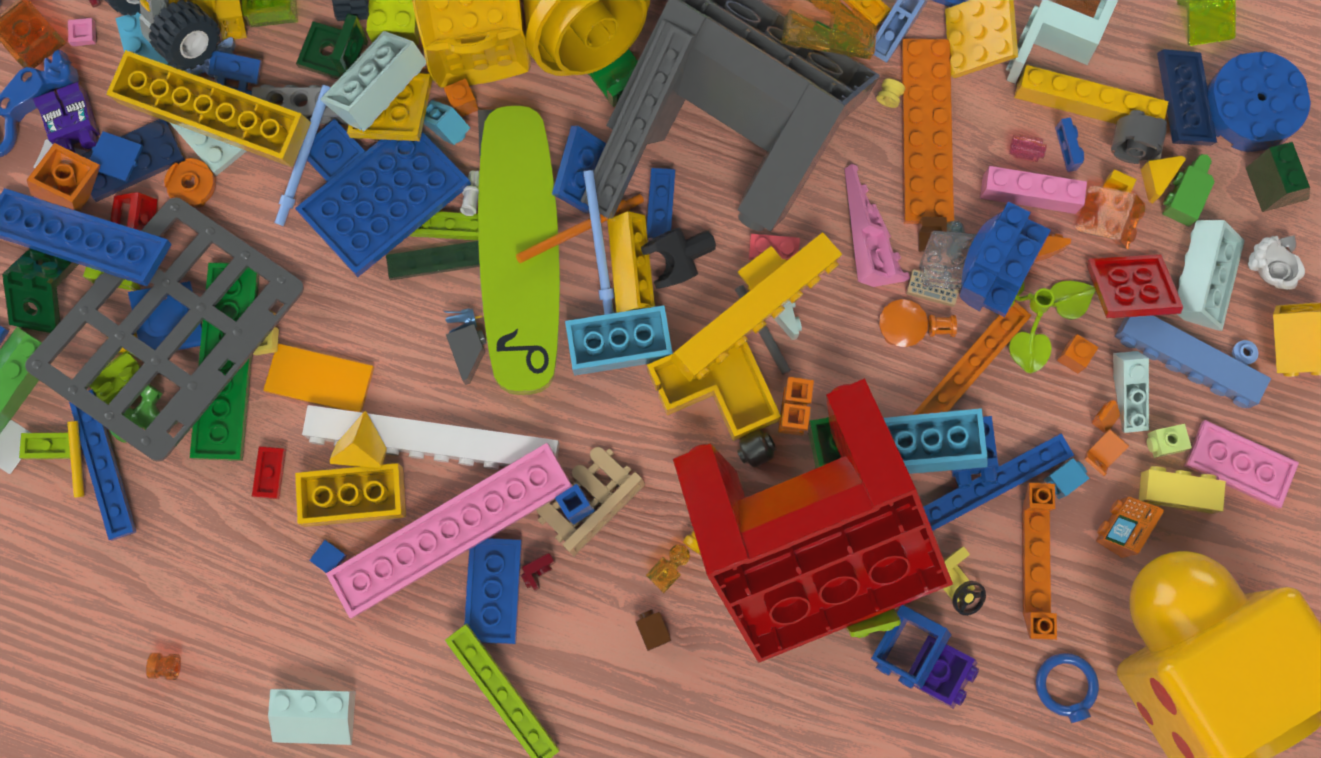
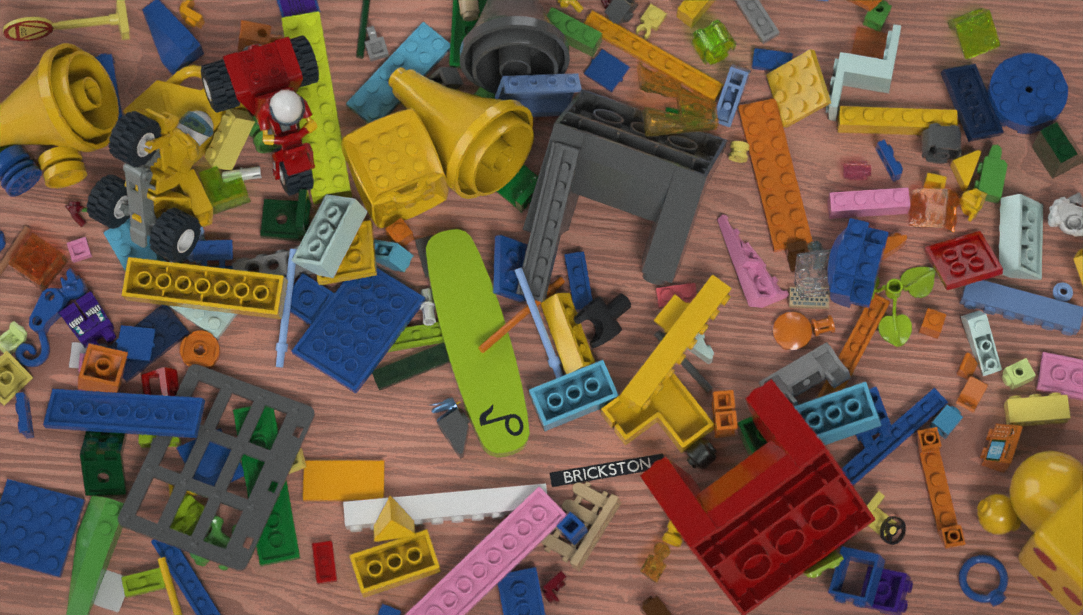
camera: 10 degrees left, 5 degrees down
(634, 439) = (603, 471): none -> black sticker
(912, 378) = (809, 371): none -> light grey bracket
(1105, 611) = (997, 515): none -> yellow brick
(1159, 218) = (972, 202): none -> yellow piece

